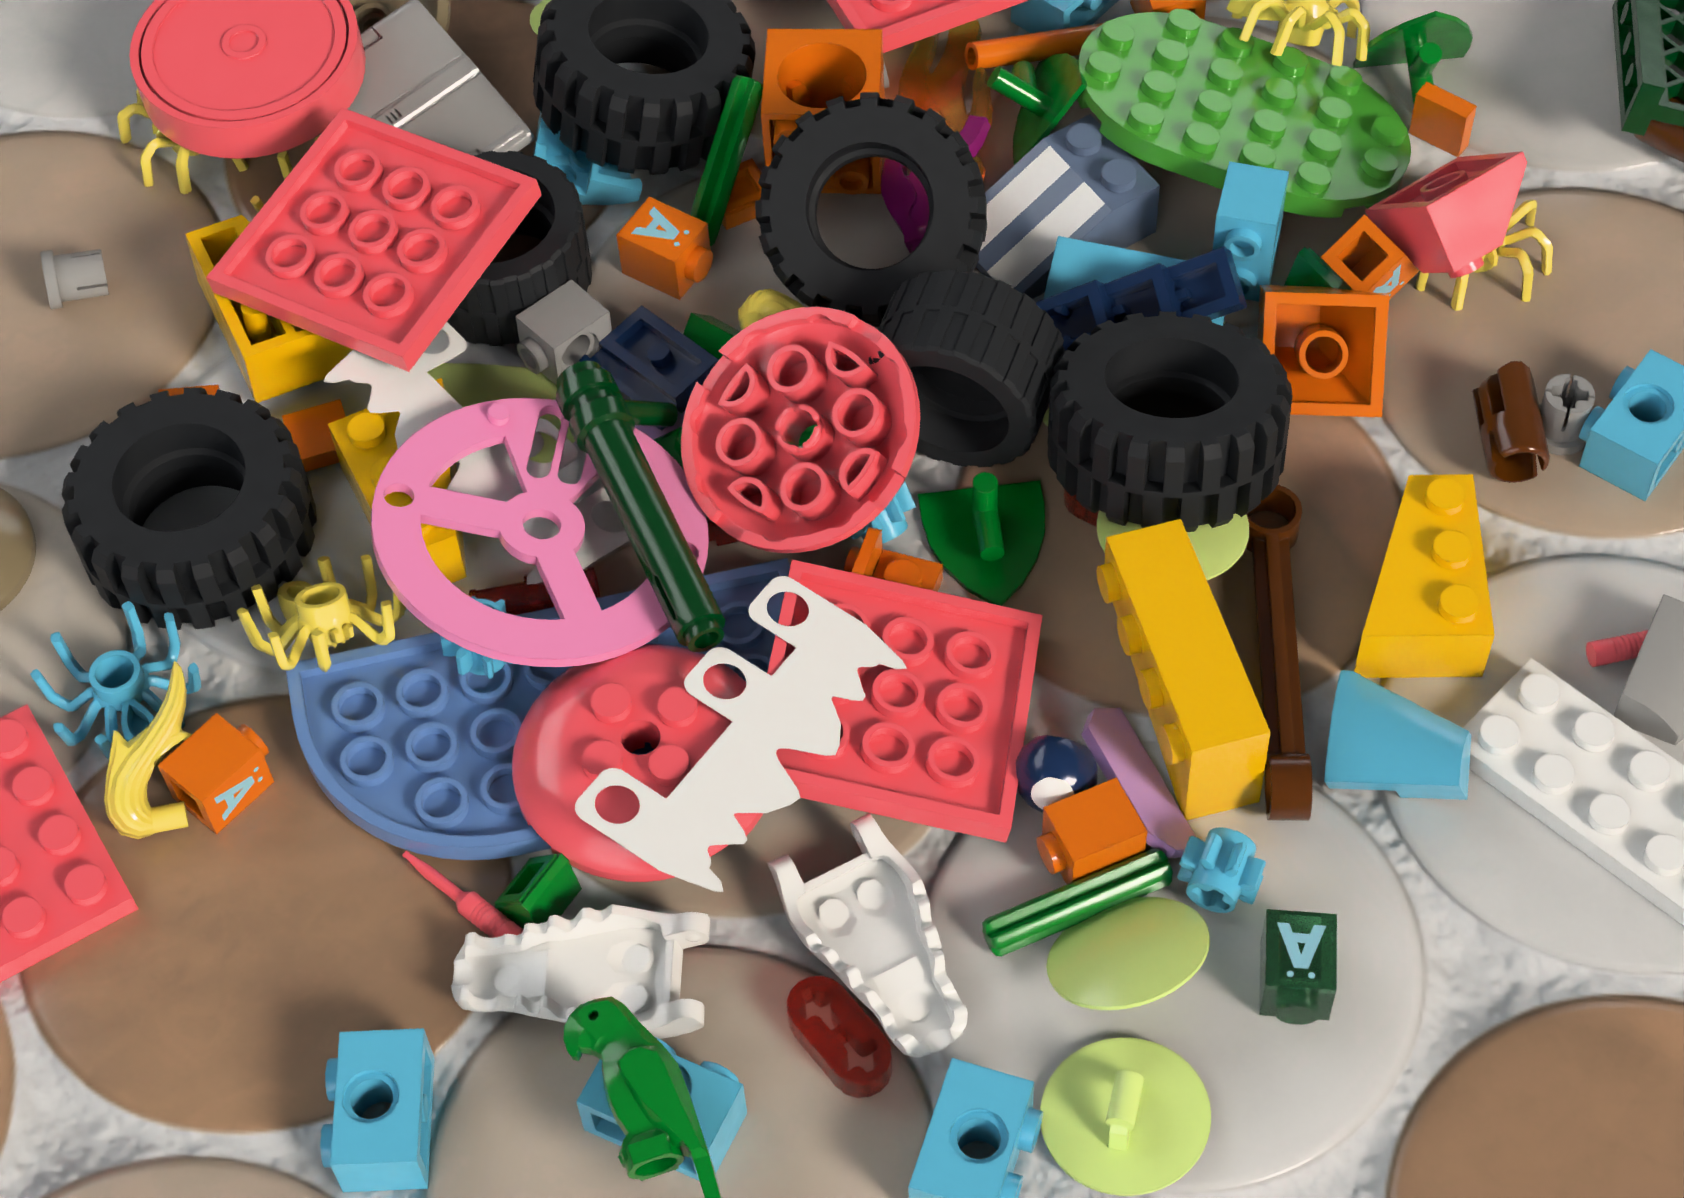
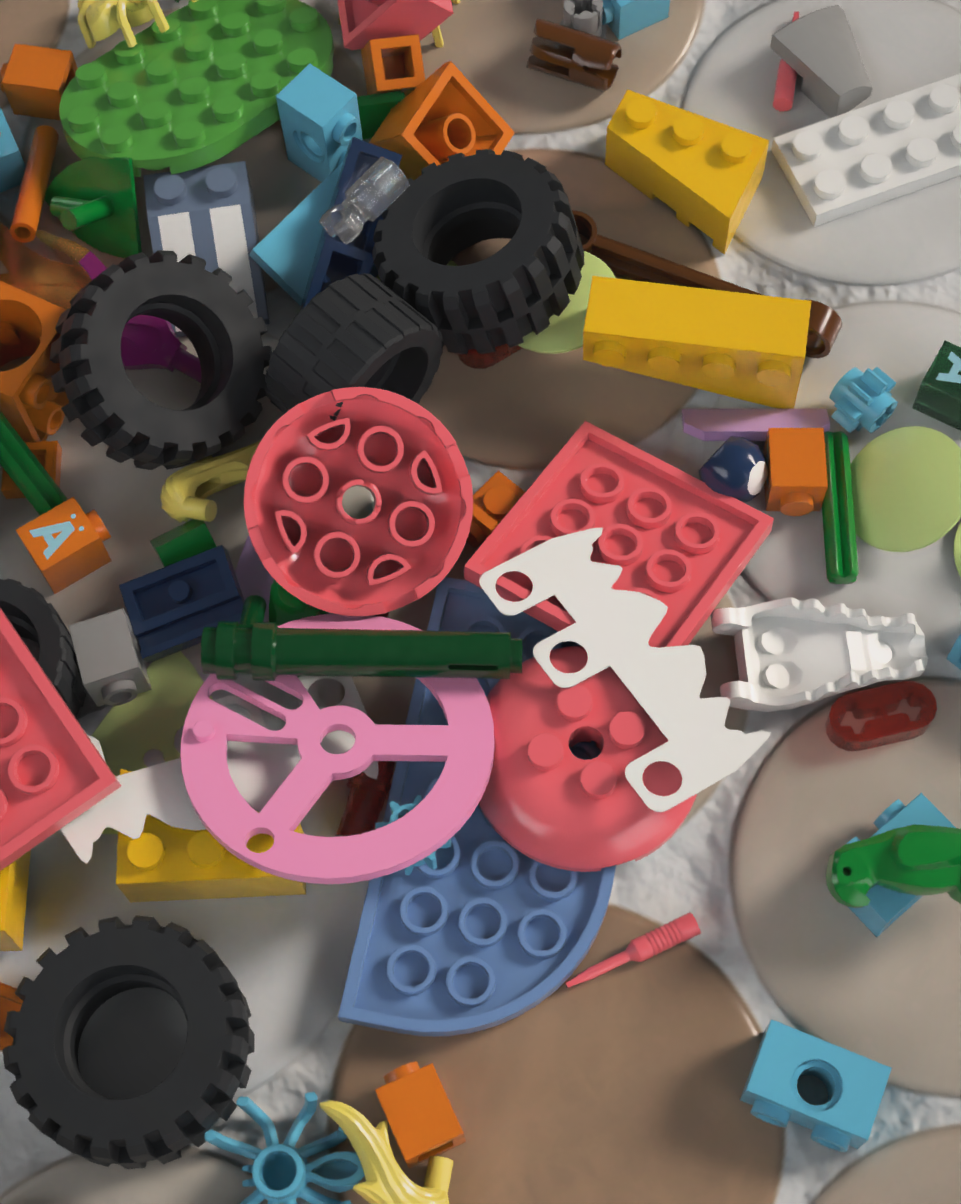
camera: 65 degrees left, 10 degrees up
(312, 434) = (87, 901): orange tile -> none
(322, 615) = (308, 963): light yellow animal -> none
(539, 890) = (652, 892): green slope -> none
(590, 957) = (755, 881): white animal -> none
(986, 534) = (487, 428): green shield -> none
(1154, 289) = (365, 200): none -> clear bar
(1393, 744) = (805, 249): medium azure slope -> none

